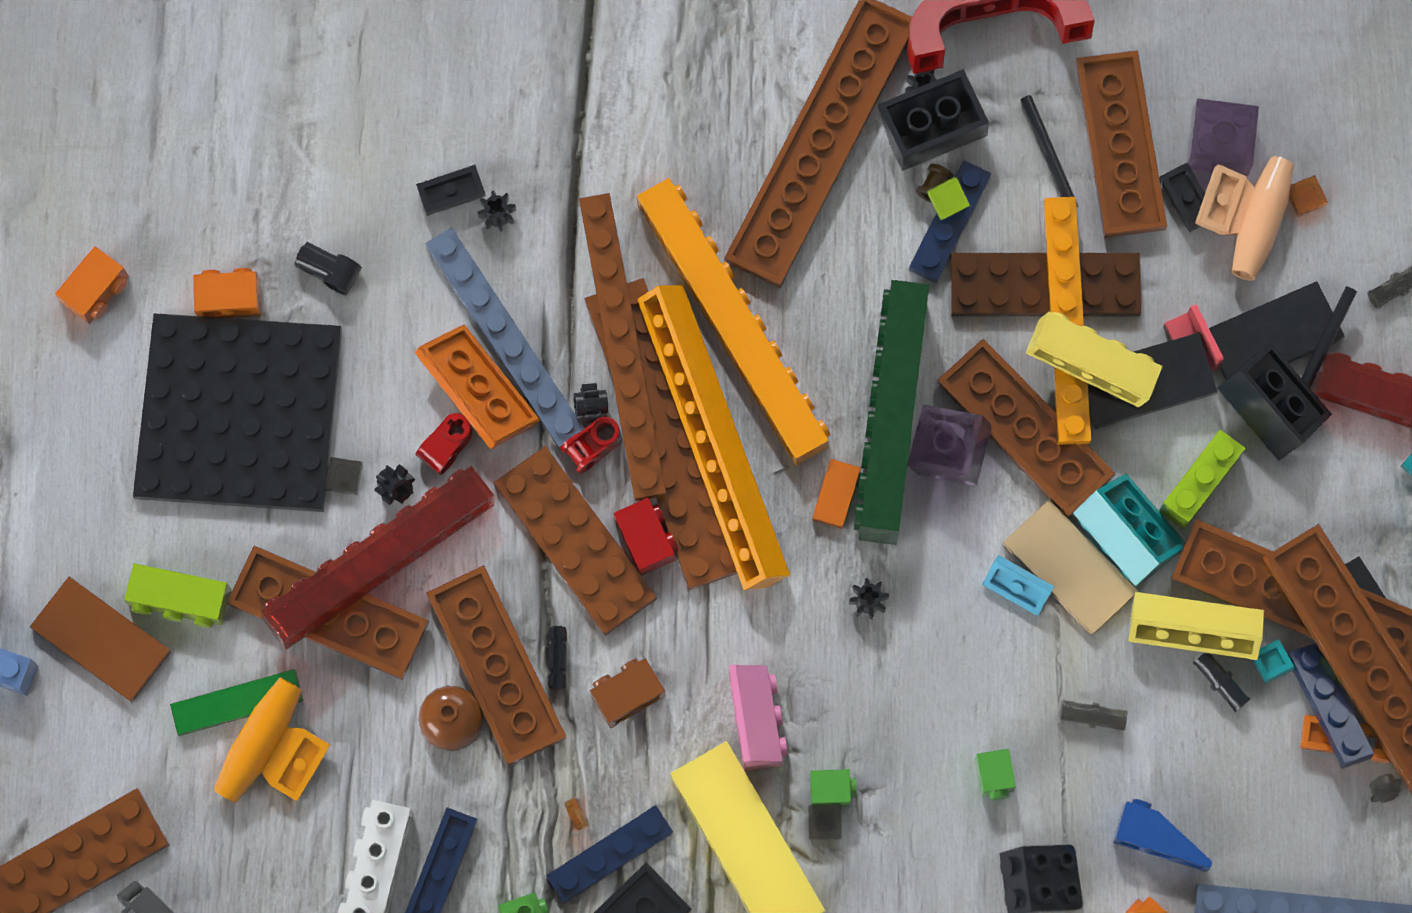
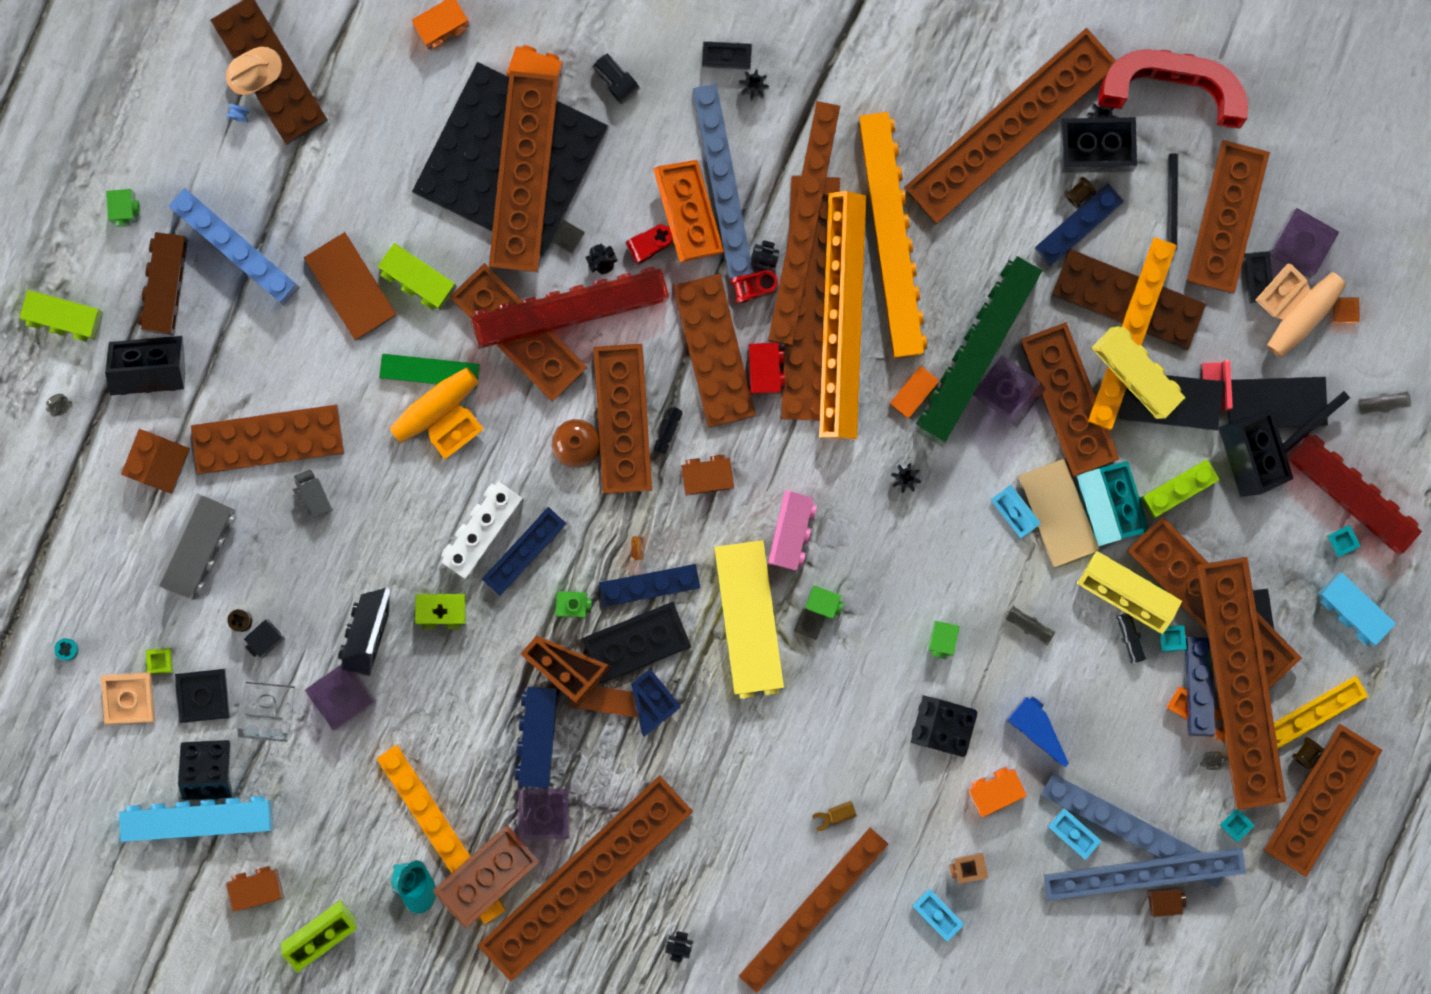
camera: 15 degrees right, 10 degrees up
(260, 417) = (524, 171): none -> dark orange plate
(948, 198) = (1084, 209): lime tile -> none

